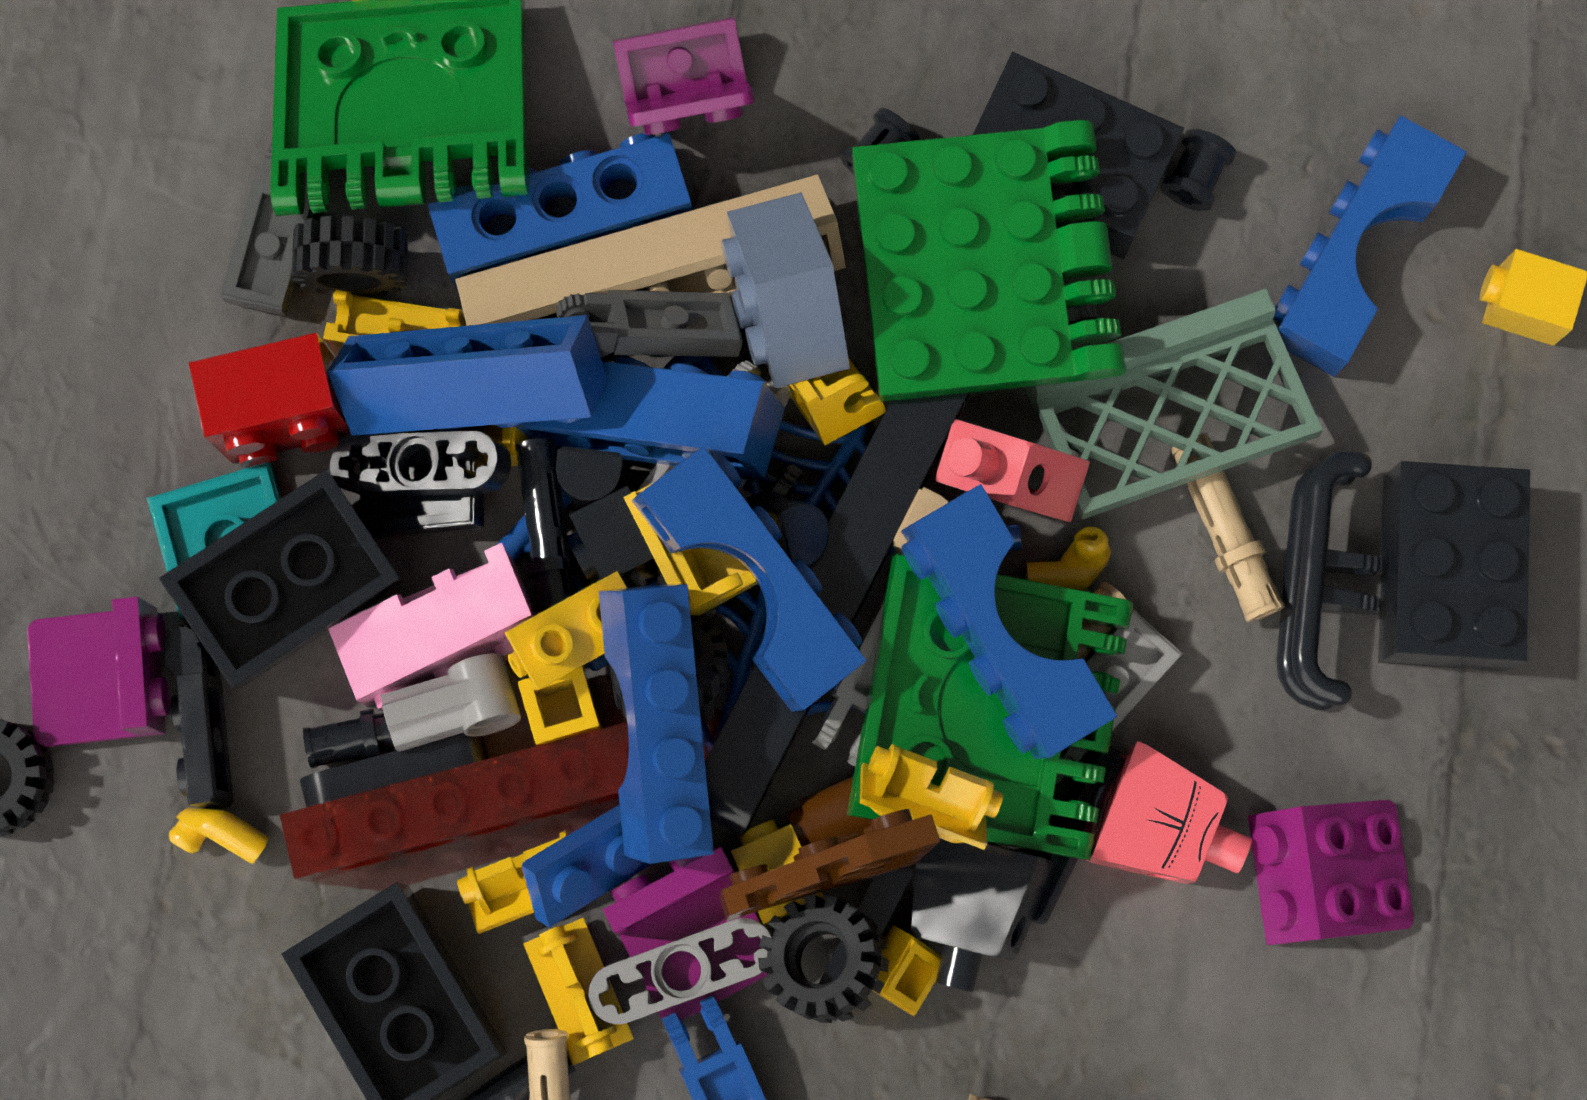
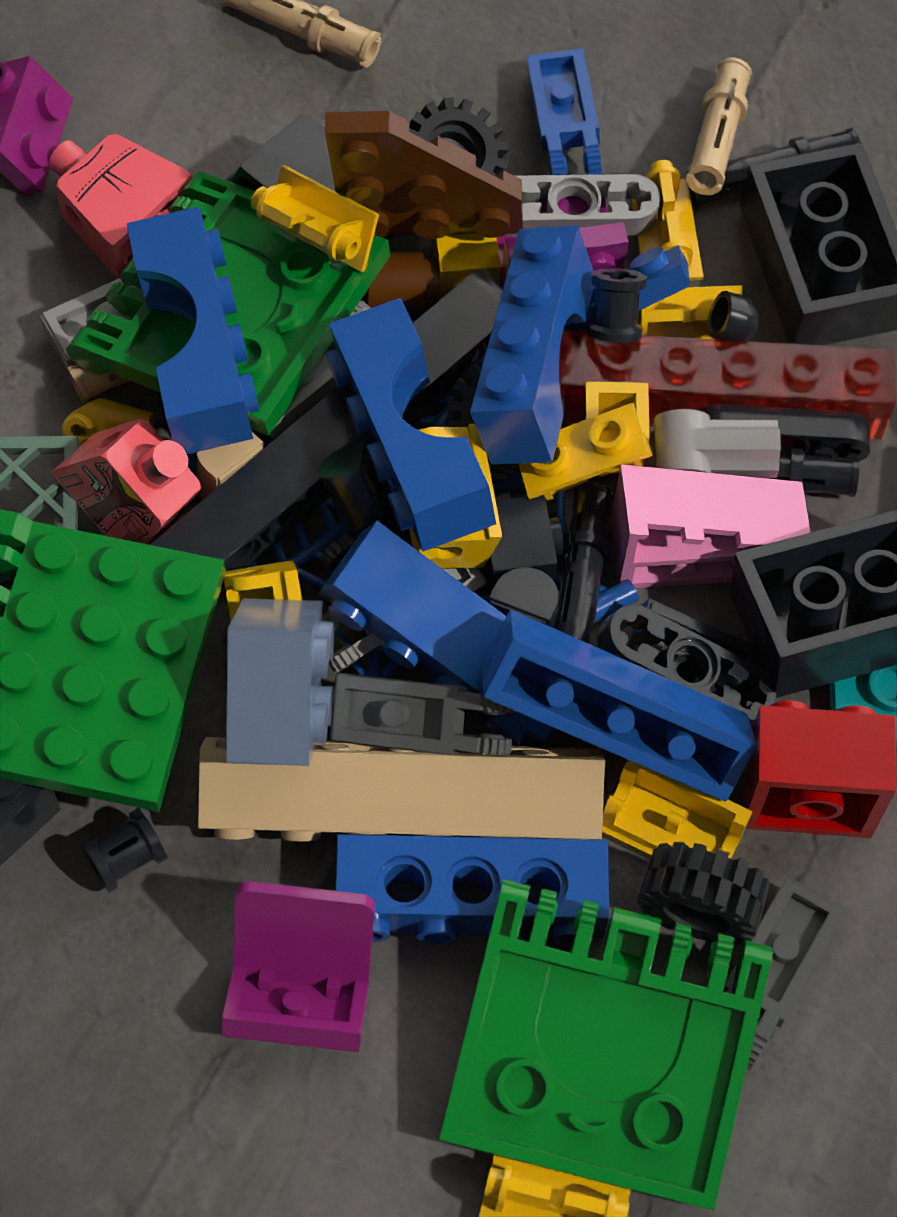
camera: 165 degrees left, 15 degrees down
(470, 855) = (732, 318): none -> black hinge
(587, 803) = (617, 305): none -> black bush

